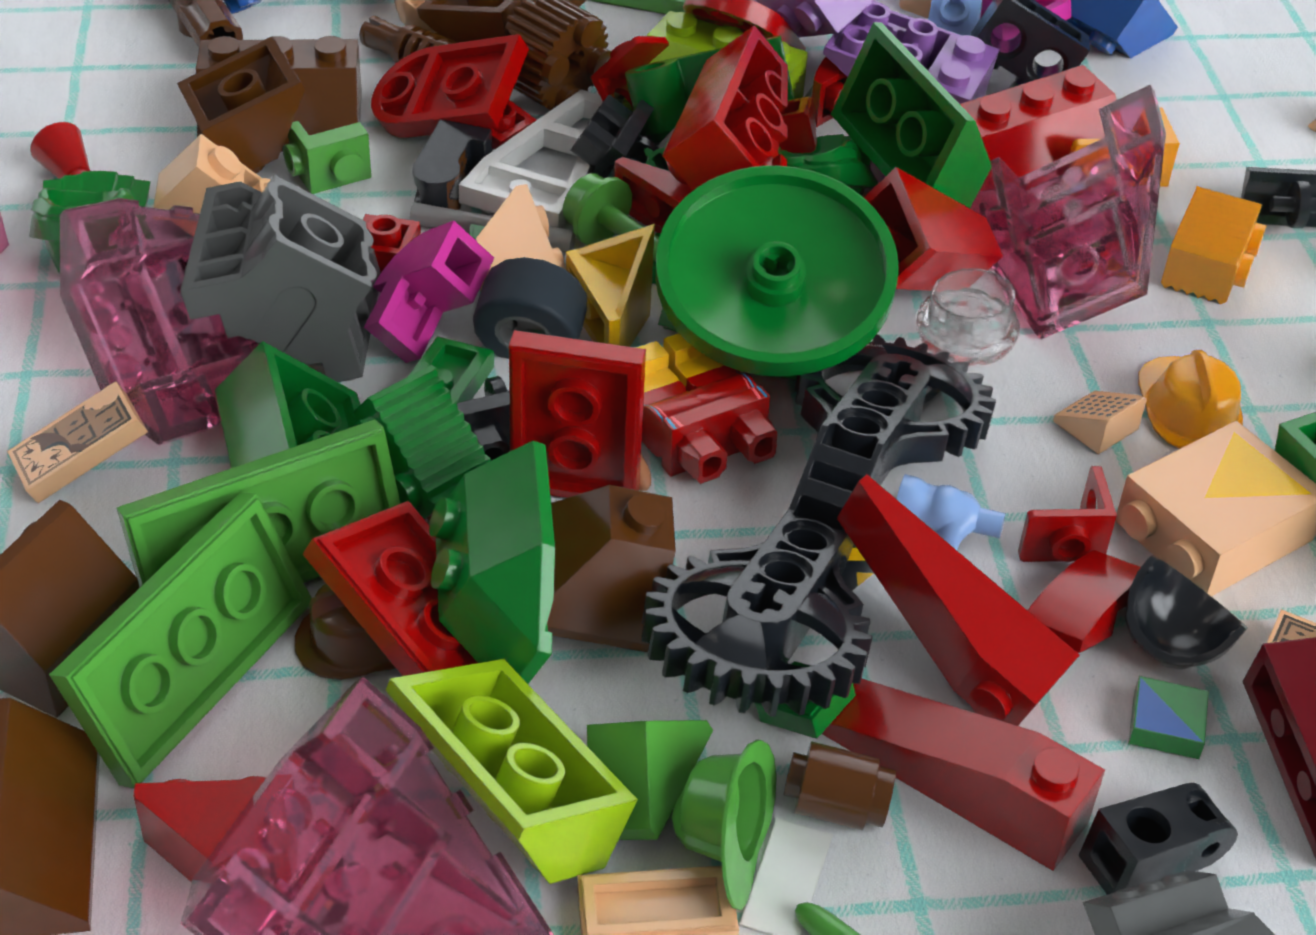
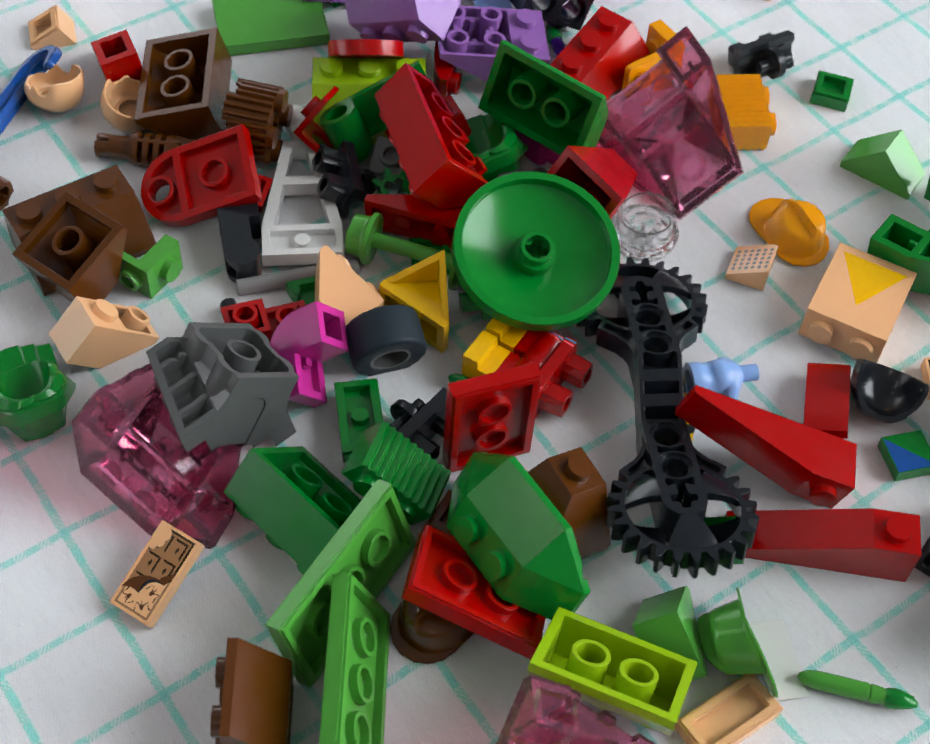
camera: 30 degrees left, 10 degrees up
(840, 786) = (777, 589): reddish brown brick -> none
(1071, 533) = (797, 356): red bracket -> none

